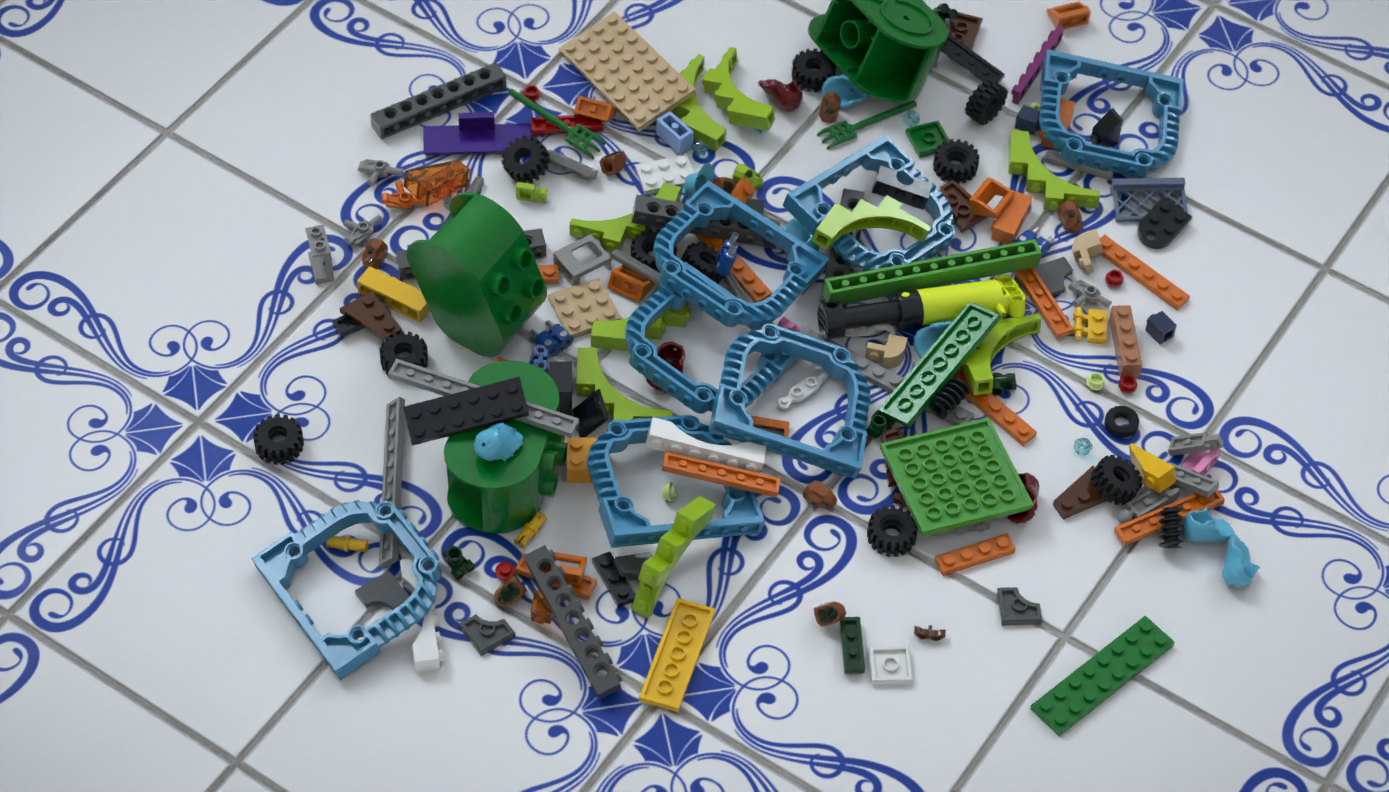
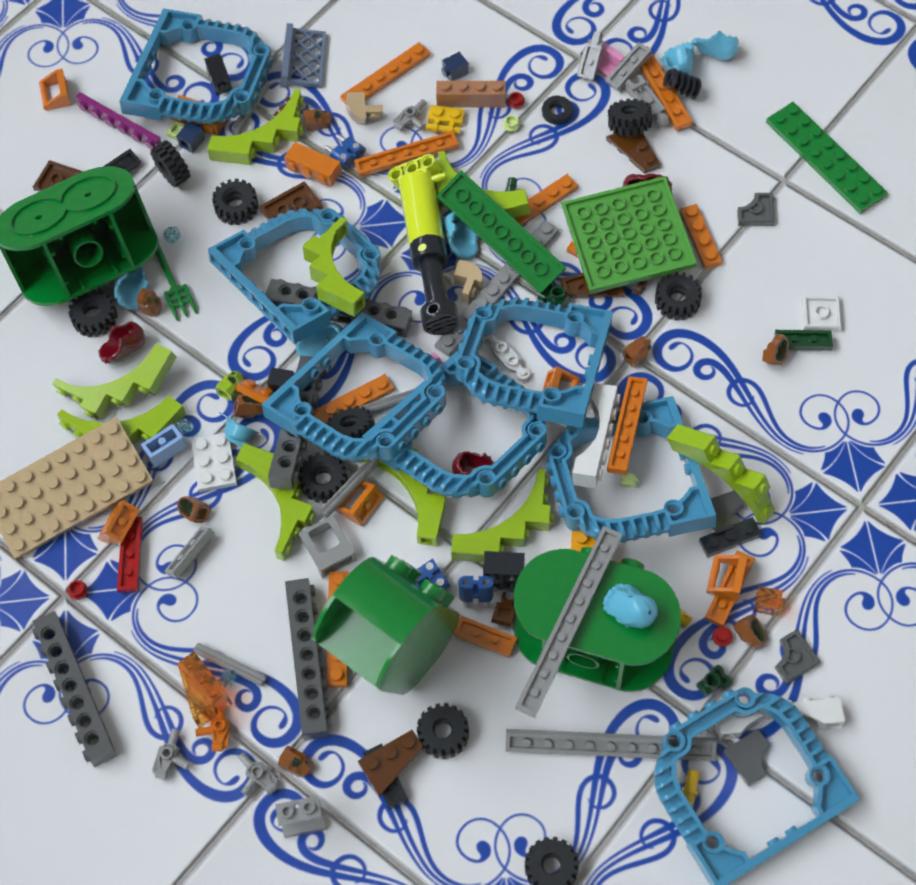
camera: 80 degrees left, 10 degrees up
(396, 294) = (356, 739): yellow brick -> none
(466, 411) = (590, 636): black plate -> none
(473, 135) = (135, 649): dark purple bracket -> none
(528, 192) = (224, 597): lime plate -> none
(530, 169) = (172, 583): black tyre -> none
(535, 562) = (739, 593): dark grey brick -> none
(571, 131) = (145, 548): green piece -> none
(582, 305) = (387, 539): tan plate -> none
(590, 413) = (534, 541): black piece -> none
(677, 655) = (820, 485): yellow plate -> none
(727, 255) = (354, 401): blue piece -> none
(888, 184) = (281, 248): arch -> none
(926, 138) = (198, 224): green tile -> none
(932, 272) = (390, 230): bright green brick -> none
(935, 635) = (789, 278): reddish brown piece -> none
(944, 12) = (38, 186): dark green plate -> none
(949, 397) = (539, 232): black piece -> none
(985, 193) = (303, 185): orange tile -> none
(1054, 273) = (381, 140): dark grey tile -> none
(1082, 446) = (584, 141): clear light blue plate -> none
(1114, 278) = (392, 95): red plate -> none
(1154, 471) = (625, 86): yellow slope -> none
(1162, 222) = (332, 50): black plate -> none

